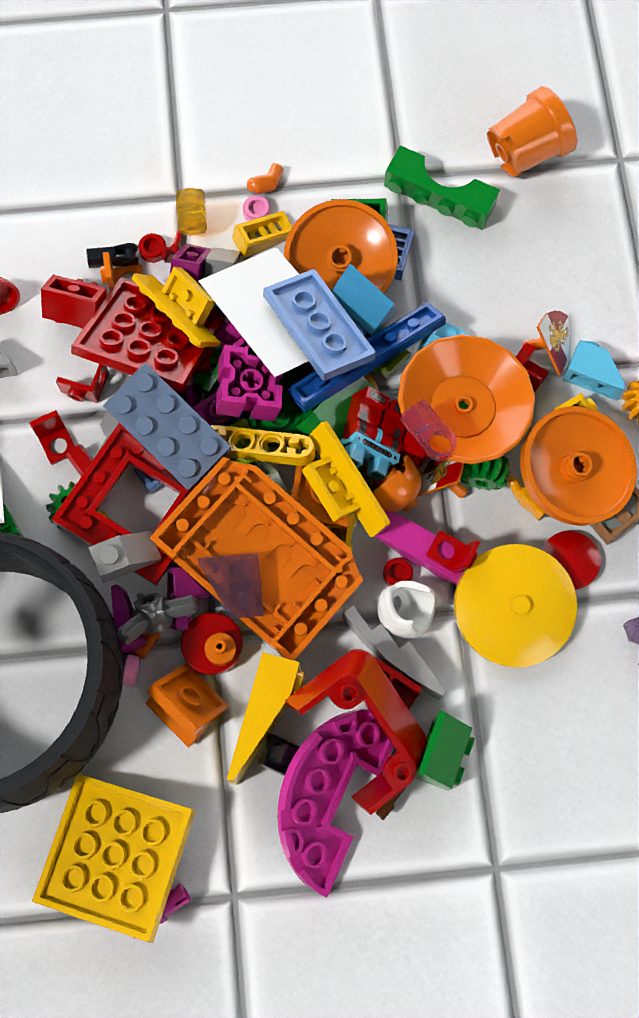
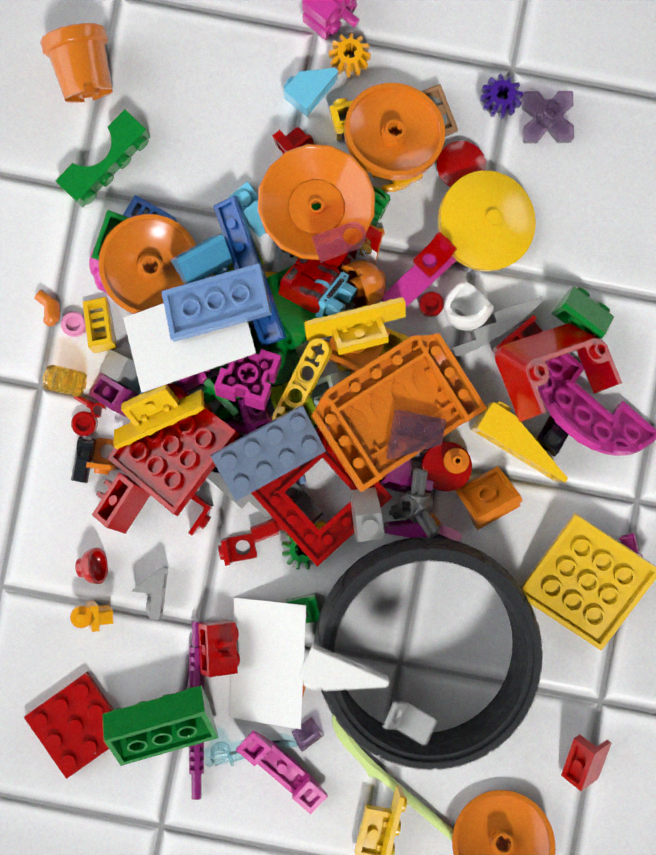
camera: 75 degrees left, 15 degrees up
(124, 493) = (305, 503): none -> dark grey bracket
(555, 337) = (273, 112): shield -> none

